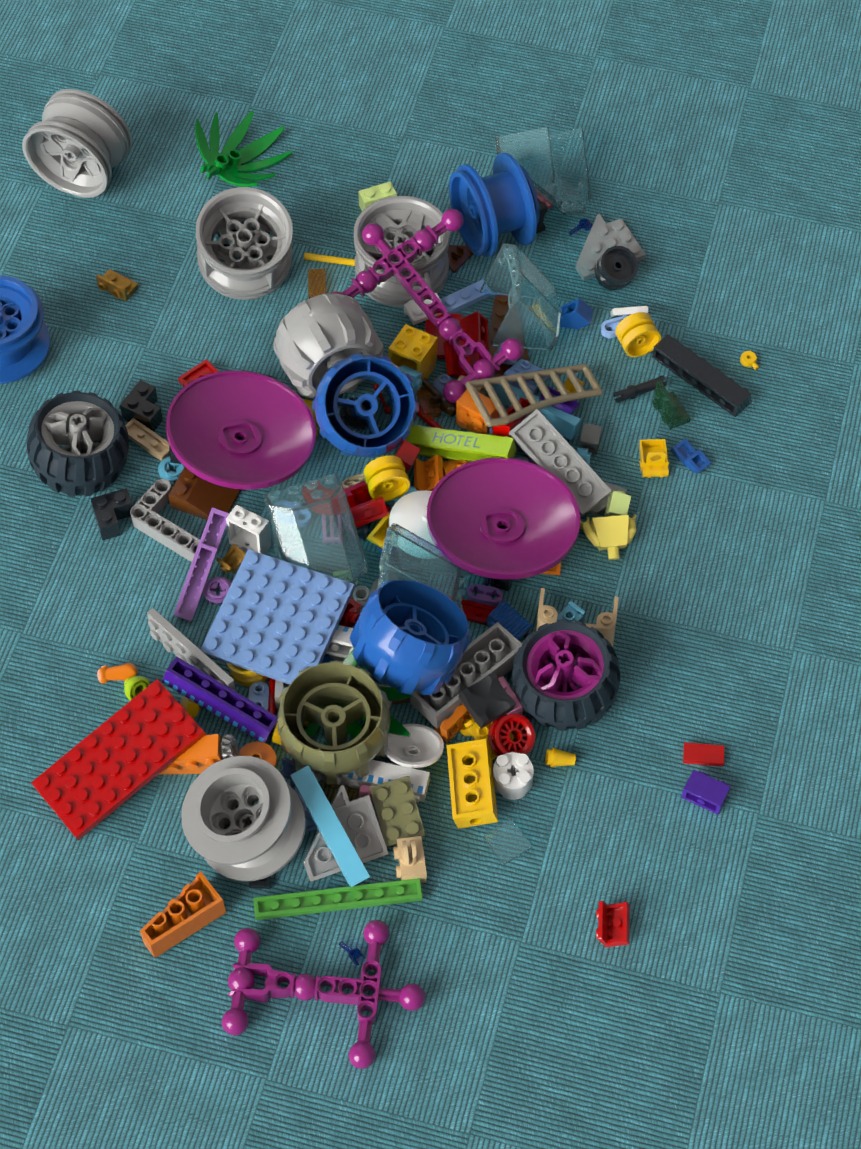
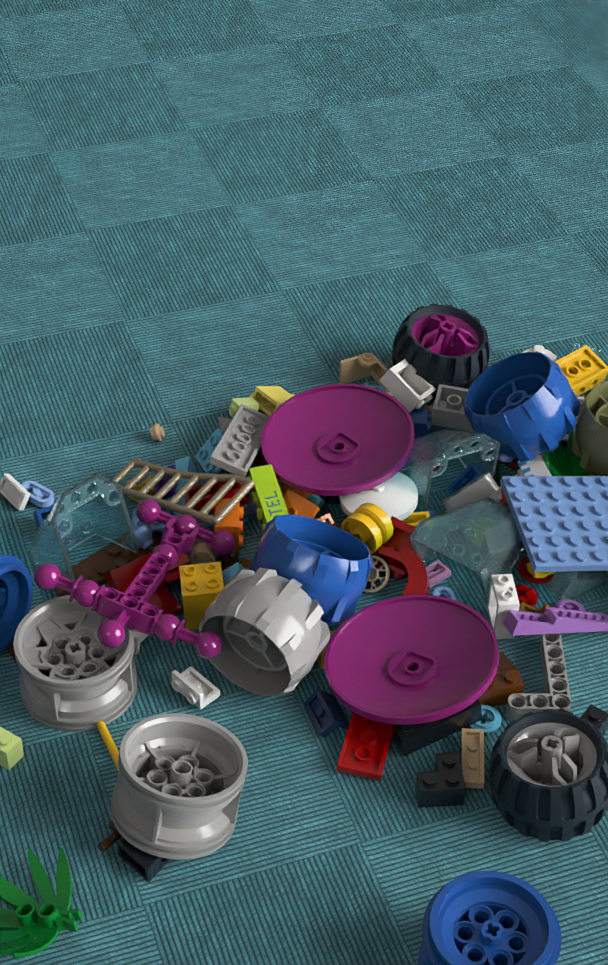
camera: 125 degrees left, 15 degrees down
(116, 285) = (303, 919): pearl gold bracket -> none
(553, 604) = (407, 387): none -> white window
(557, 757) = (497, 354): yellow cone -> none
(590, 438) = (183, 450): dark grey brick -> none
(613, 924) = (584, 282): red bracket -> none
(633, 391) = (108, 455): black pin -> none
(635, 435) = (157, 432): none -> tan plate
(637, 334) = (45, 464): yellow wheel -> none
(653, 458) = (172, 413): yellow piece -> none
(669, 406) = (109, 423): clear green bracket -> none
(690, 457) = (148, 398): blue slope -> none
(701, 375) = (53, 422): black brick -> none
(703, 754) = (414, 295): red tile -> none
(706, 791) = (443, 280): dark purple brick -> none
(749, 359) = (9, 406): yellow piece -> none

